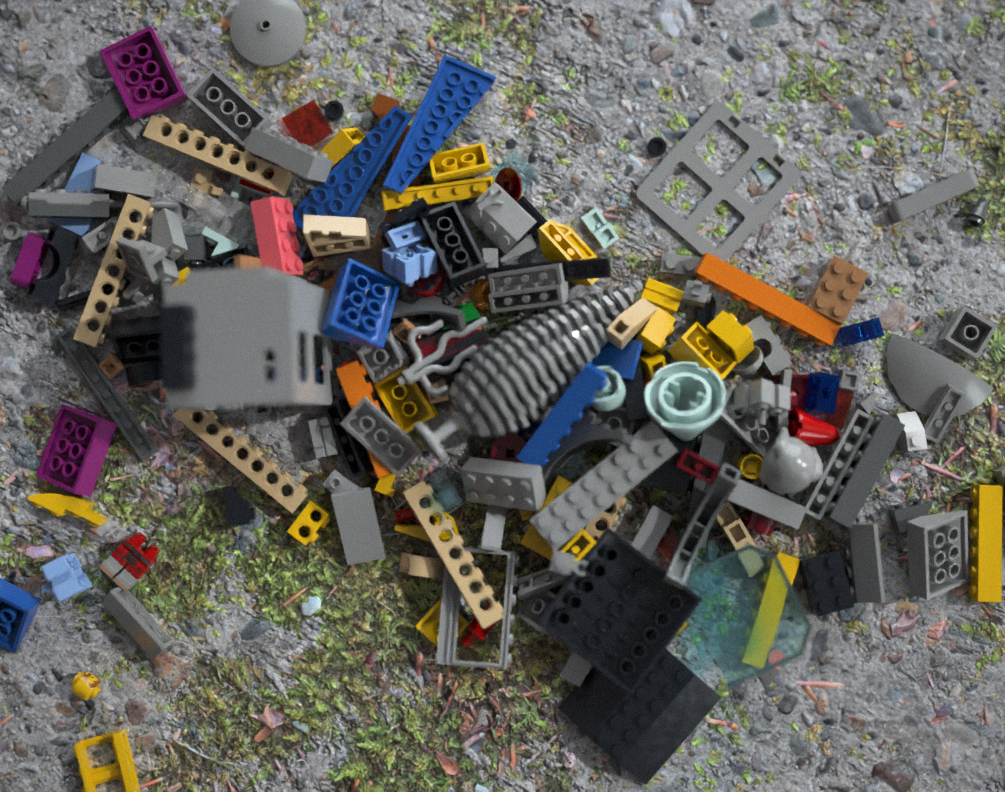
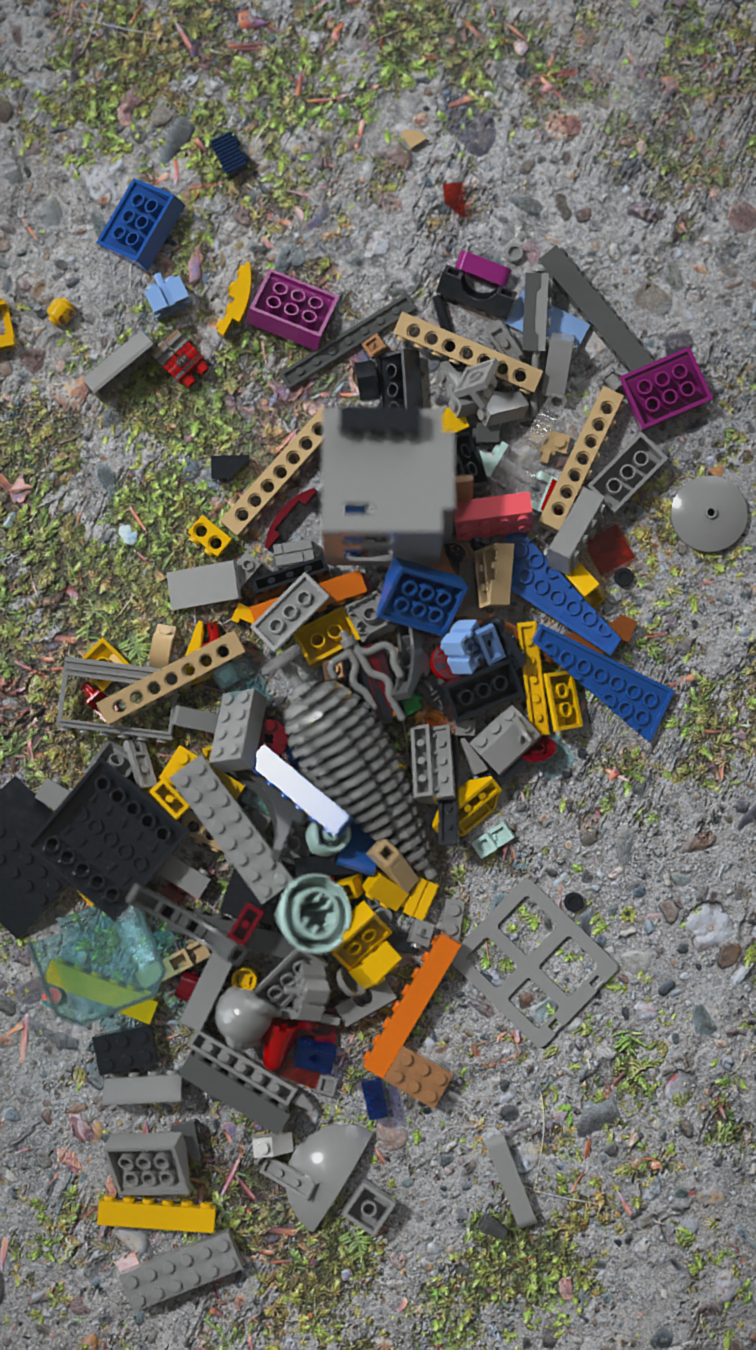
camera: 95 degrees right, 0 degrees up
(267, 431) = (303, 498): none -> dark red slope
(403, 330) = (395, 637): medium nougat tile -> none
(565, 563) = (156, 787): light grey brick -> none
(591, 458) = (261, 821): none -> light grey tile

